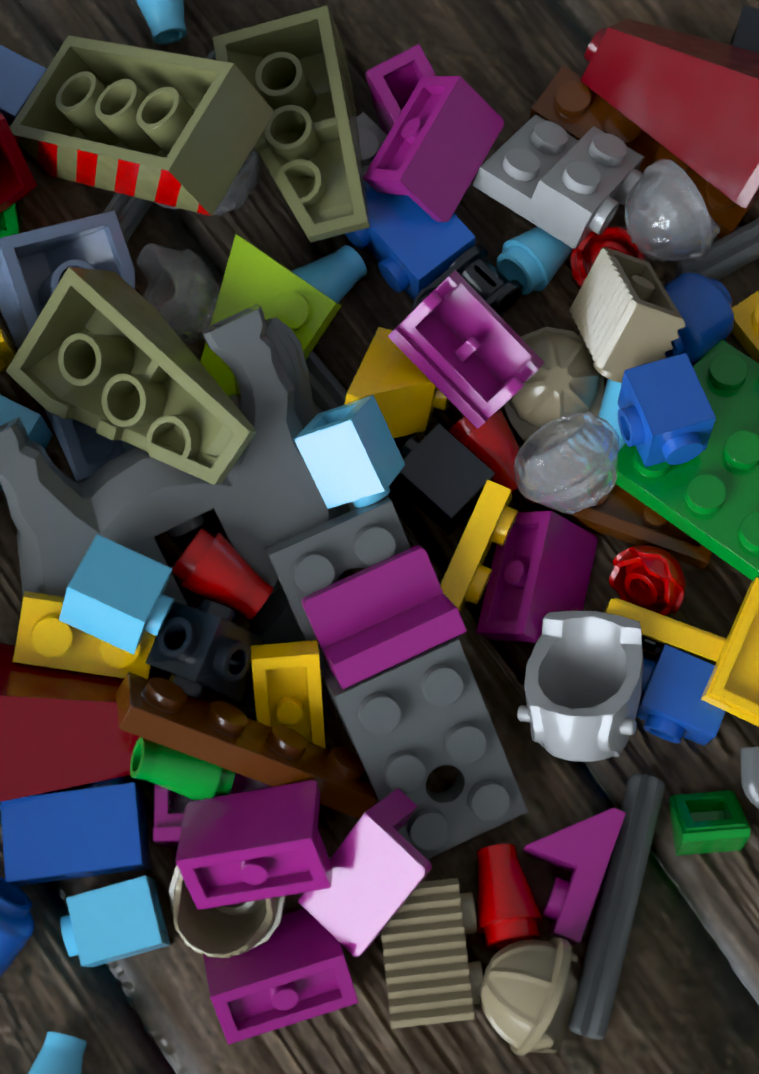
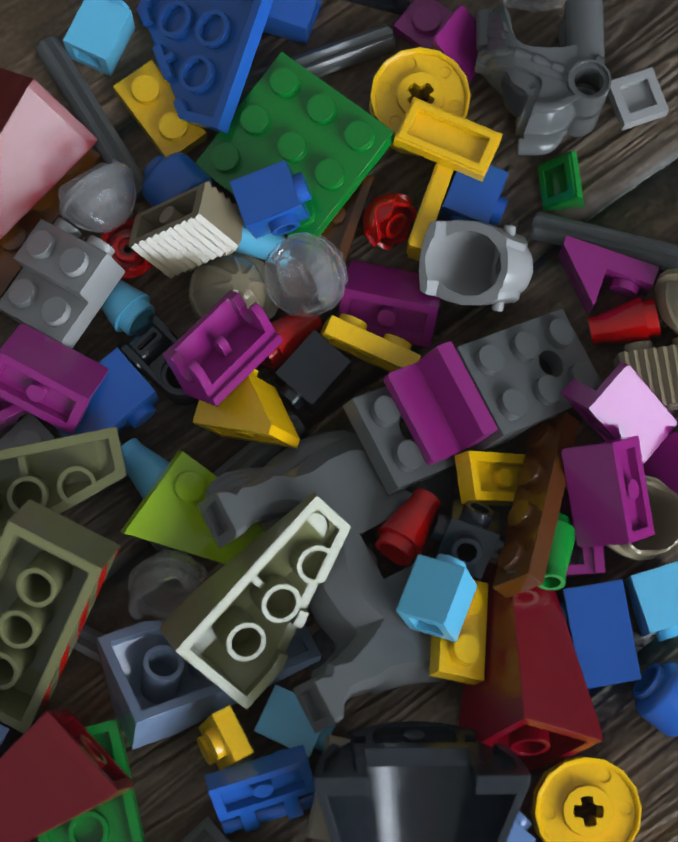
camera: 95 degrees left, 5 degrees up
(351, 453) = (314, 430): brick -> none

